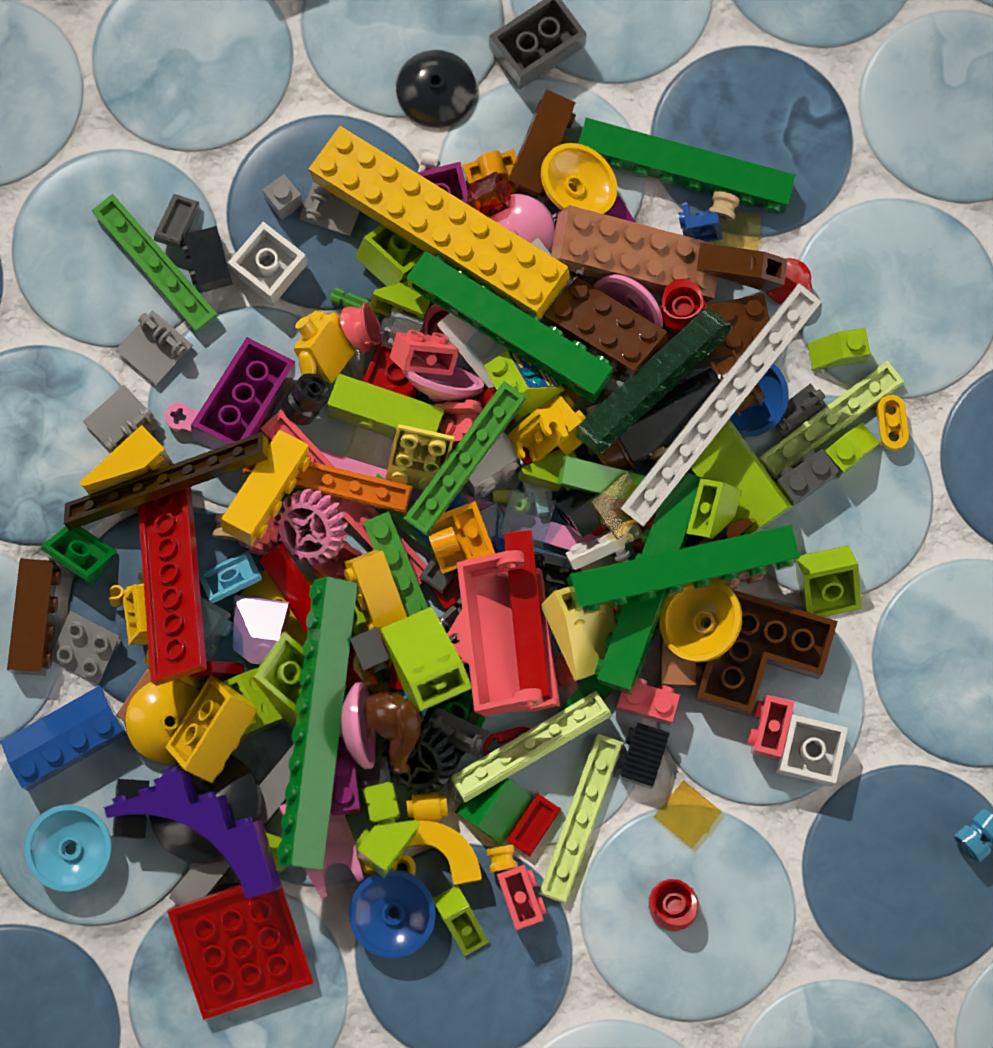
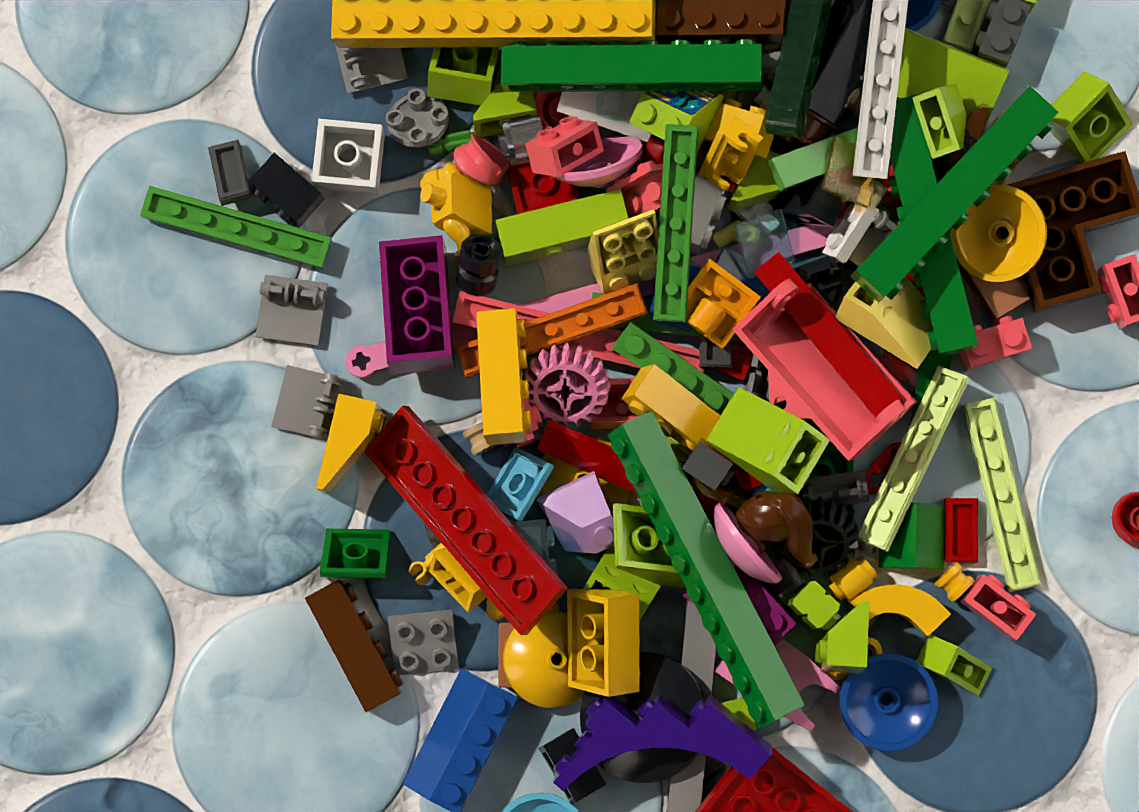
camera: 25 degrees left, 5 degrees up
(166, 481) = (398, 431): dark brown plate -> none
(220, 670) = (576, 573): red tile -> none
(282, 197) = (318, 82): light grey brick -> none
(336, 269) = (417, 119): none -> light grey dish
(643, 756) = (1022, 397): black brick -> none
(687, 814) = (1098, 425): clear yellow piece -> none

